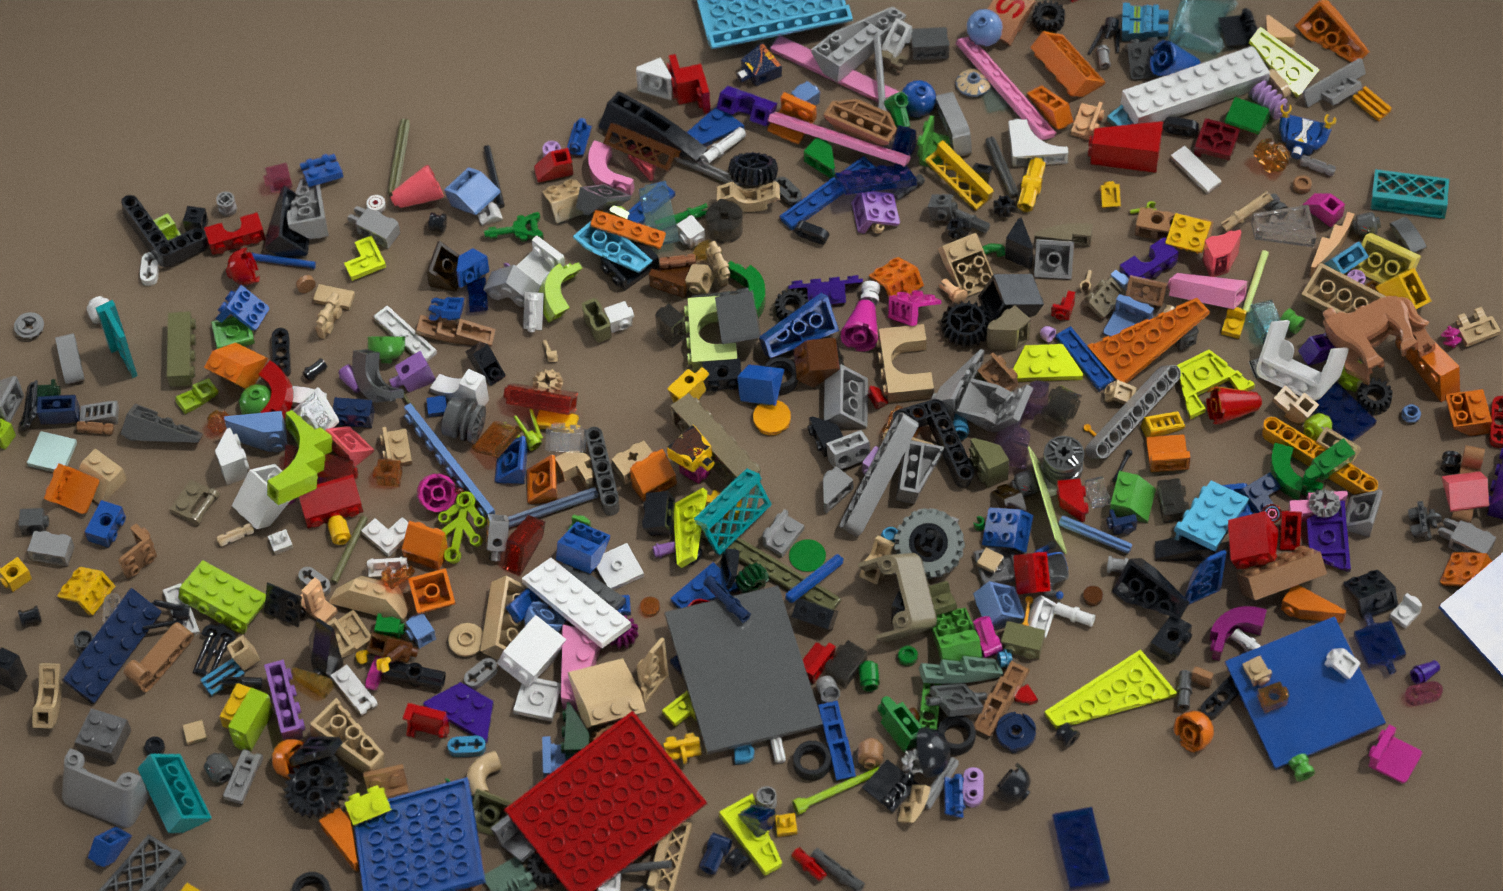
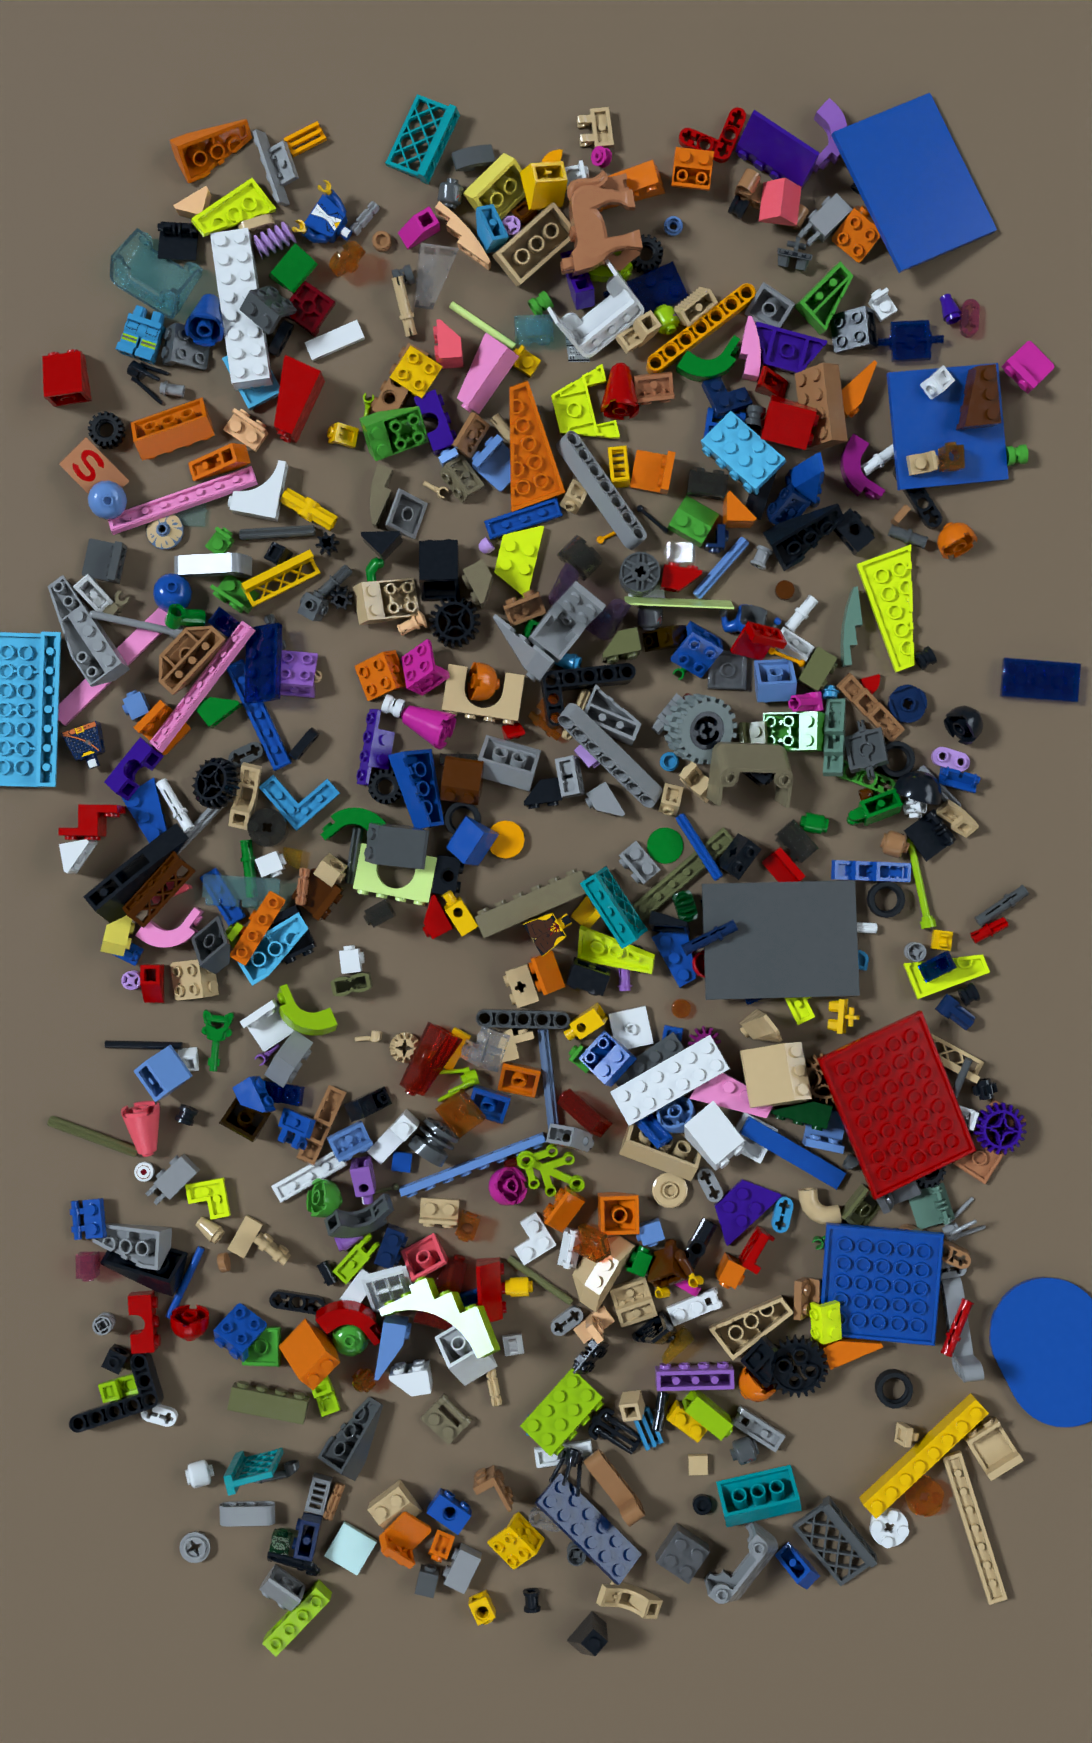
camera: 80 degrees left, 30 degrees up
(69, 525) = (441, 1546): none -> orange bracket
(118, 383) = (290, 1468): none -> dark grey bar
(333, 267) = (210, 1230): none -> tan cone
(334, 387) = (355, 1260): none -> lime hinge
(395, 702) = (730, 1271): none -> orange brick
(446, 354) = (350, 1141): none -> medium blue bracket
(531, 736) = (792, 1152): none -> blue tile
(533, 311) = (324, 1044): white hinge -> none
(589, 125) = (116, 936): none -> light yellow slope
(615, 523) = (592, 1018): none -> yellow torso
(674, 370) = (436, 920): none -> red slope
(717, 263) = (317, 848): tan plate -> none
(746, 241) = (298, 813): none -> dark azure plate
(828, 689) = (819, 865): light grey wheel -> none
(853, 544) = (670, 799): none -> tan bracket
(907, 656) = (800, 781): green tile -> none
(916, 358) = (483, 682): none -> orange cylinder
(979, 126) = (220, 541): none -> bright green bracket
(990, 560) = (725, 675): tan tile -> none
(1065, 309) = (460, 516): red bracket -> none
(1082, 658) = (851, 620): none -> sand green slope
(1125, 226) = (393, 431): none -> bright green slope
(1150, 525) = (736, 513): none -> orange slope
(1175, 572) = (787, 505): none -> dark blue bracket
(1204, 98) = (266, 307): none -> dark grey bracket
(1249, 433) = (654, 387): none -> nougat bracket
(1273, 512) = (751, 395): clear red tile -> none
(1317, 507) = (750, 344): light grey gear -> none
(1329, 461) = (721, 321): green hinge -> none
(1339, 707) = (981, 399): none -> reddish brown wedge
(1391, 554) = (822, 300): none -> bright green wedge
(1426, 314) = (576, 172): none -> white bracket
(1436, 301) = (553, 156): none -> light orange tile

